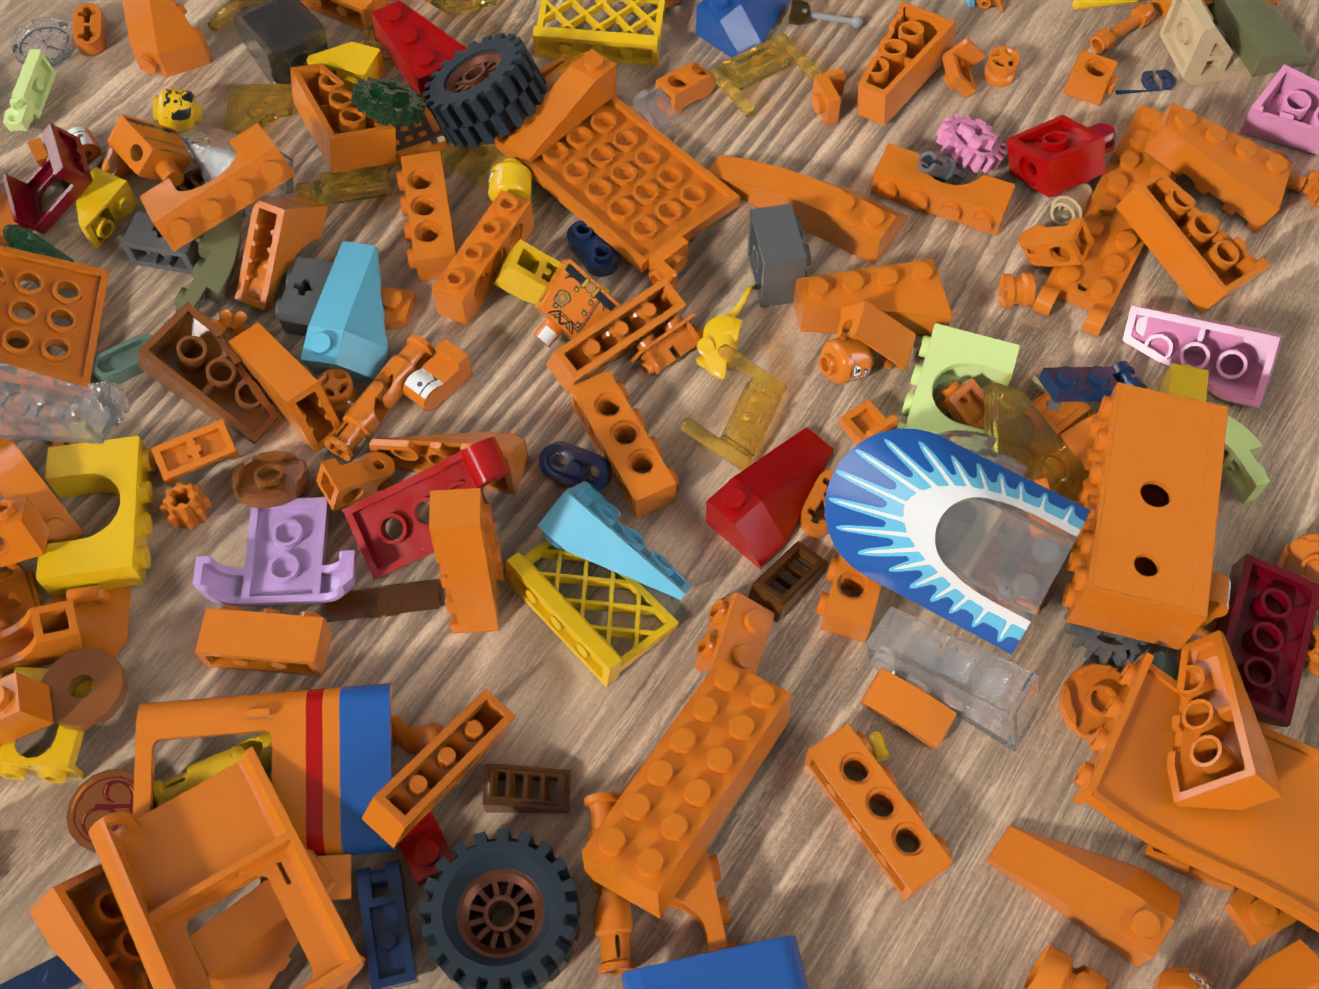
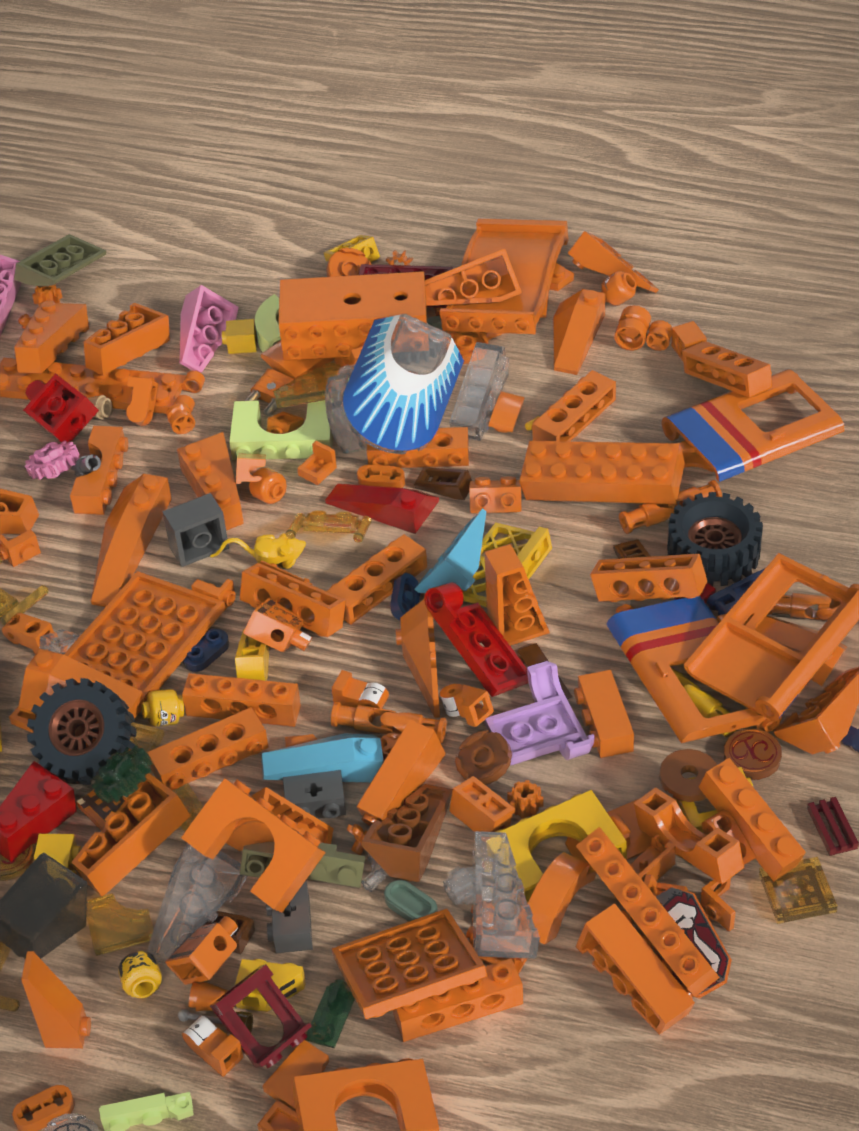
camera: 105 degrees left, 15 degrees down
(1087, 383) = (248, 372): dark blue plate -> none

